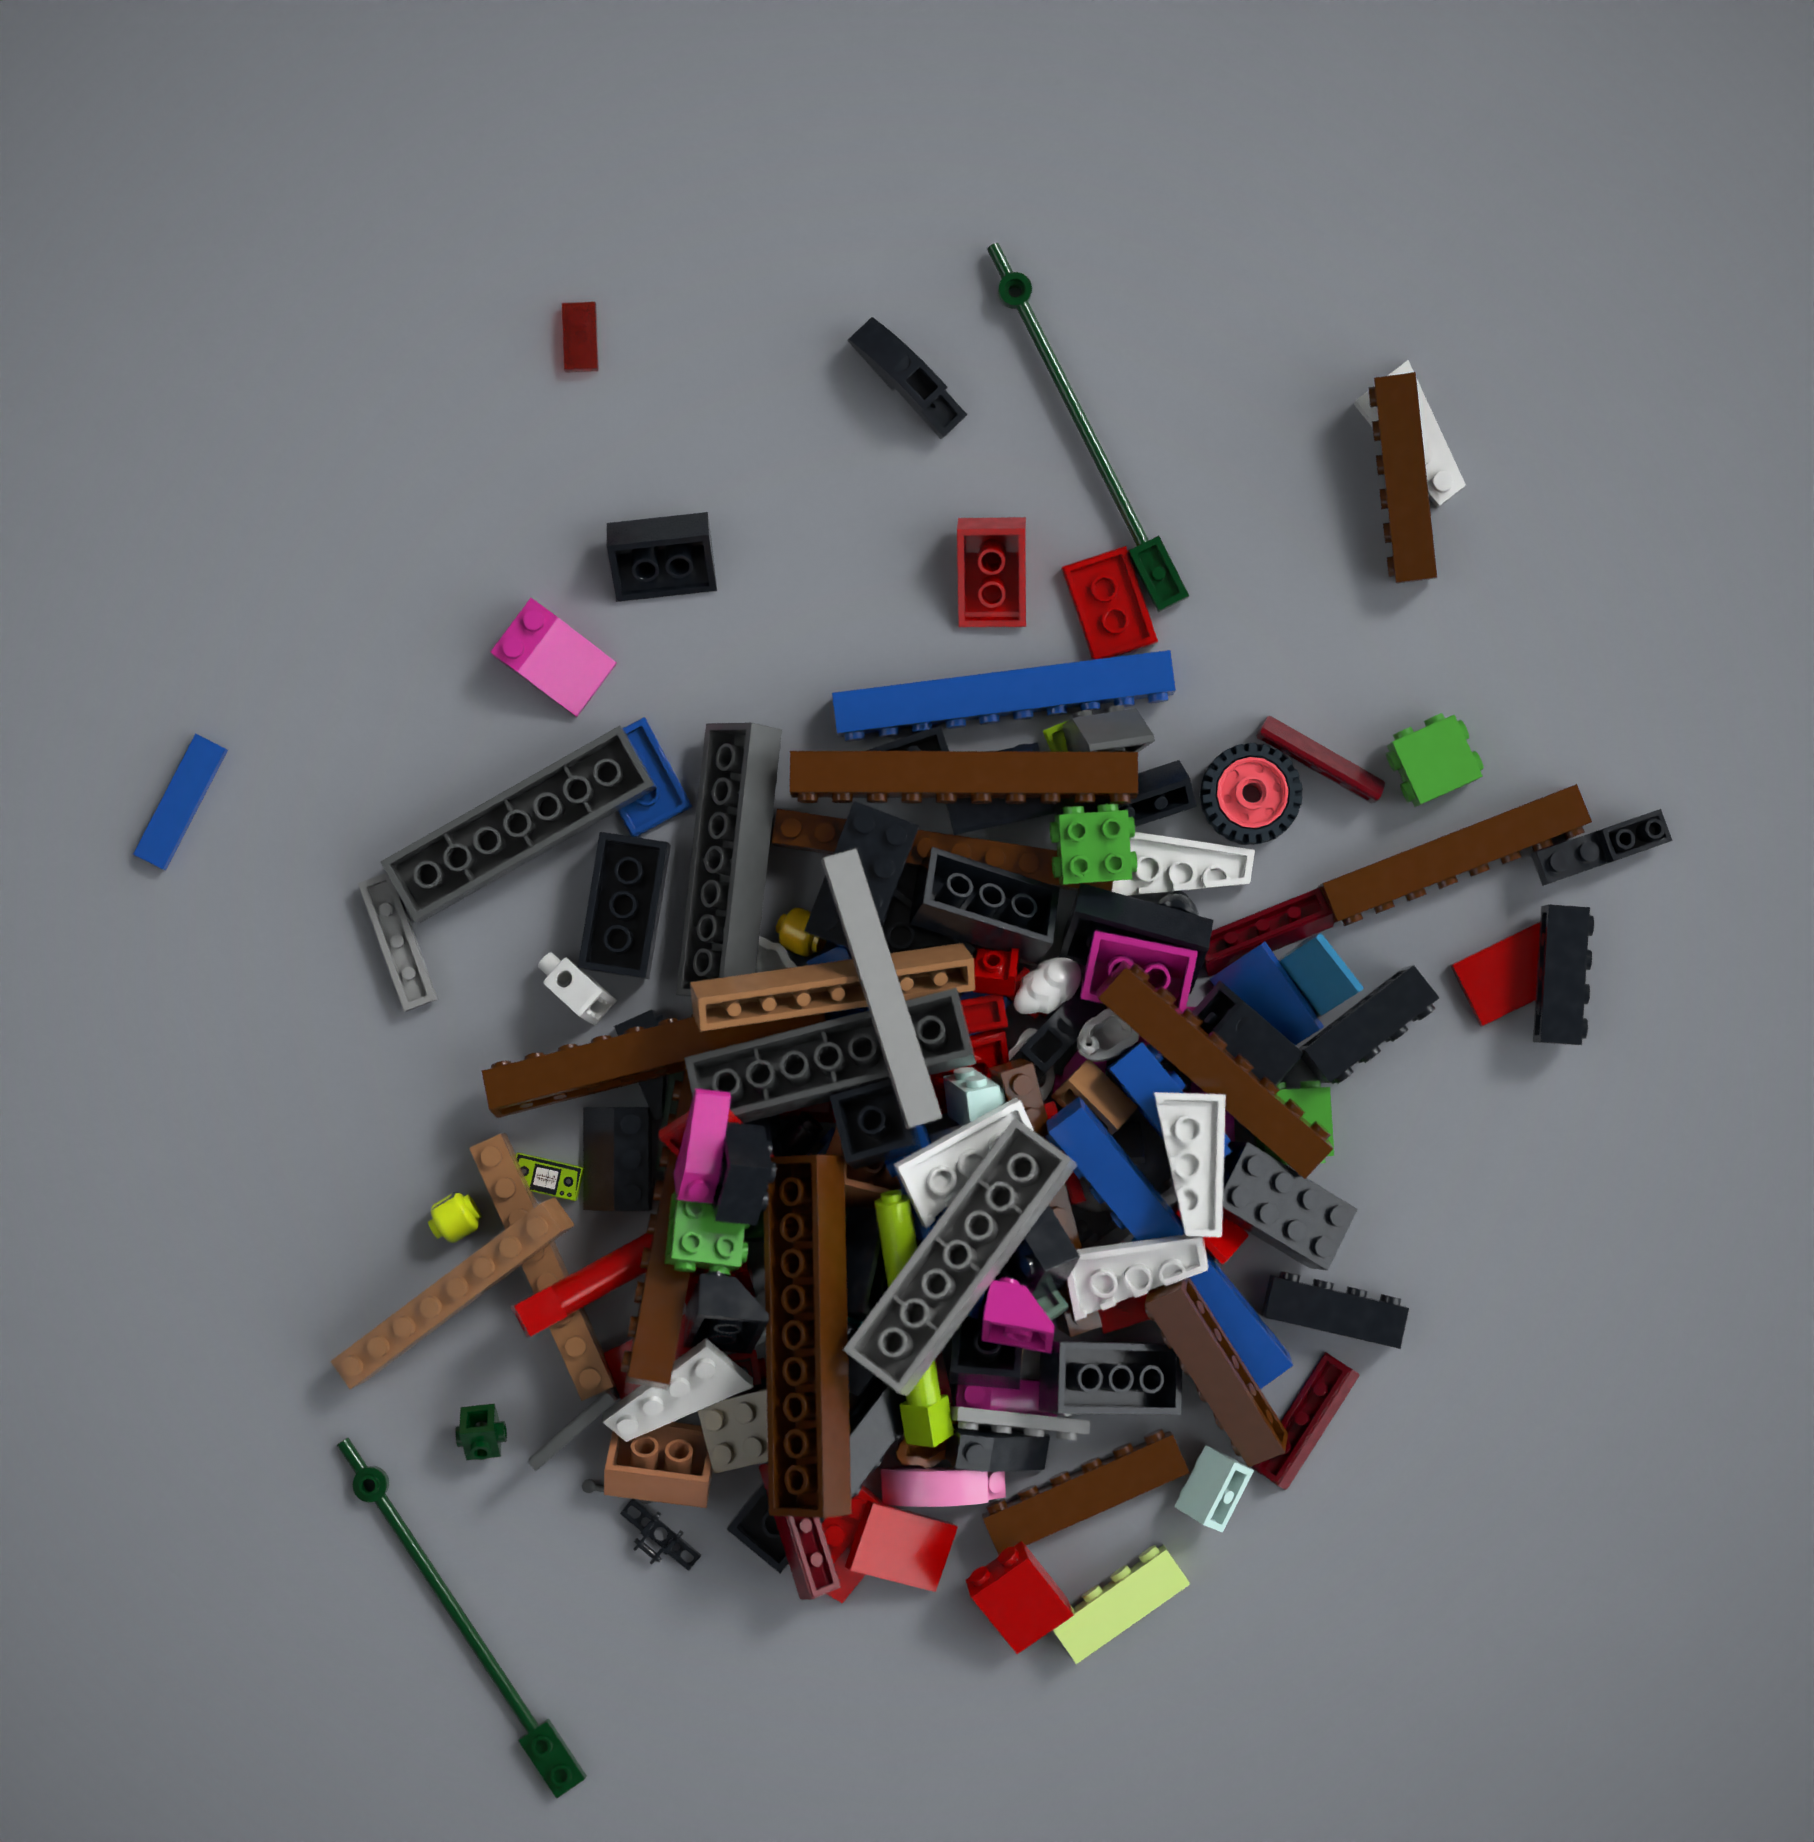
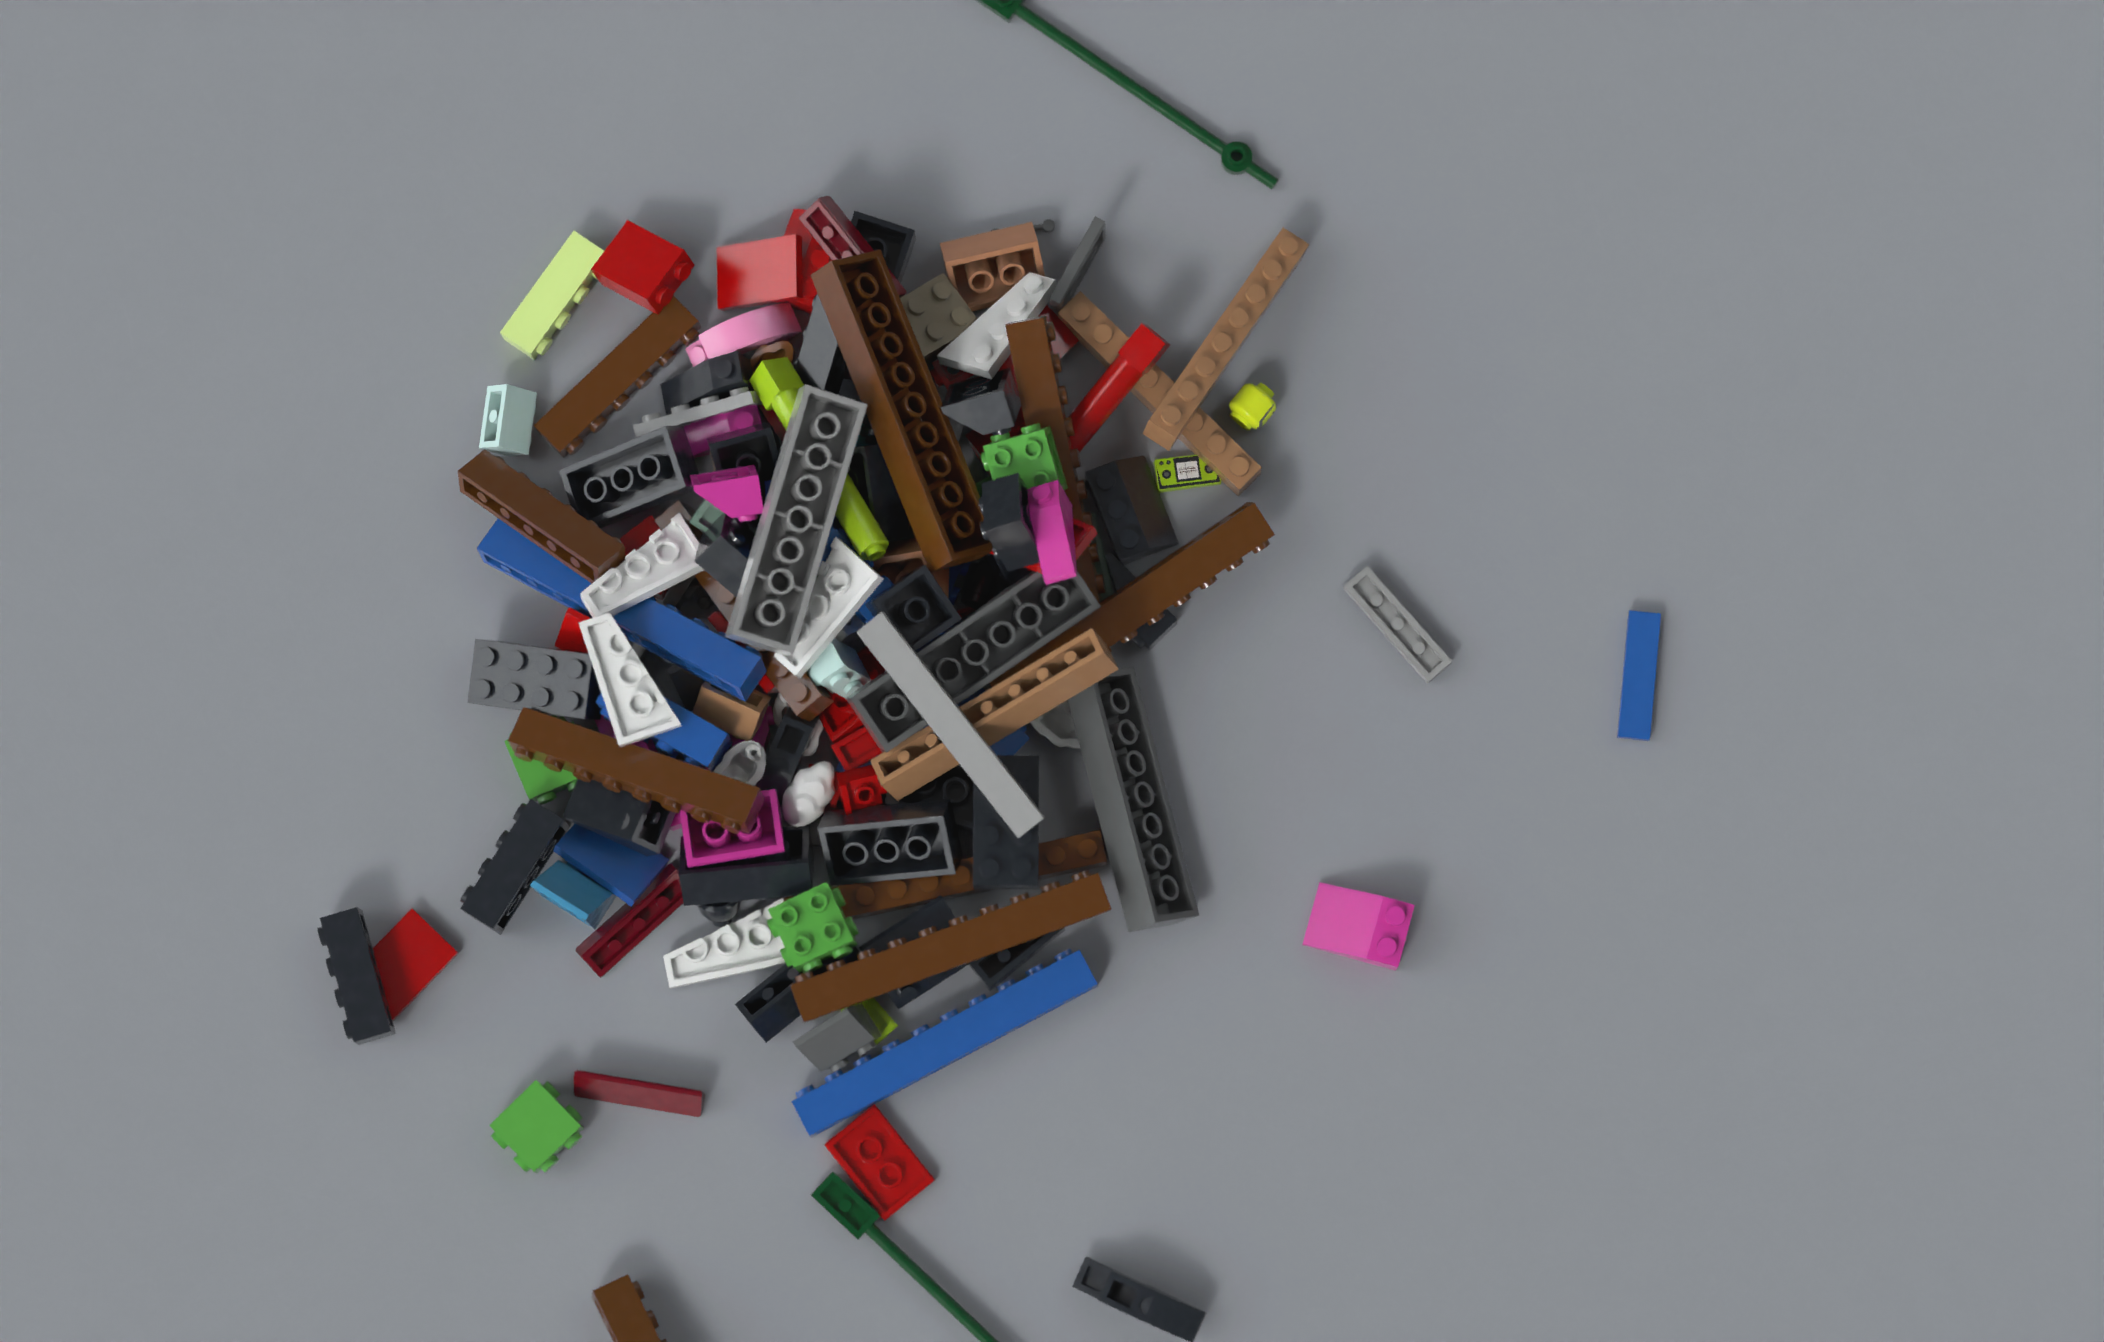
camera: 160 degrees right, 5 degrees down
(480, 1432) = (1157, 234): dark green brick -> none
(518, 824) = (1329, 764): dark grey brick -> none
(580, 337) = (1451, 1227): clear red plate -> none
(583, 994) = (1211, 638): white torso -> none
(624, 905) = (1209, 727): black brick -> none
(661, 556) = (1298, 1052): black slope -> none
(665, 1547) = (982, 206): black piece -> none
(667, 799) = (1242, 849): blue tile -> none
(792, 934) = (1051, 763): yellow head -> none
(991, 572) = (996, 1151): red slope -> none
(1270, 774) = (665, 1031): wheel -> none
(1309, 1418) = (445, 513): dark red slope -> none
(1335, 1311) = (455, 611): black brick -> none
(1456, 853) = (488, 1051): reddish brown brick -> none
(1601, 847) = (360, 1105): black slope -> none

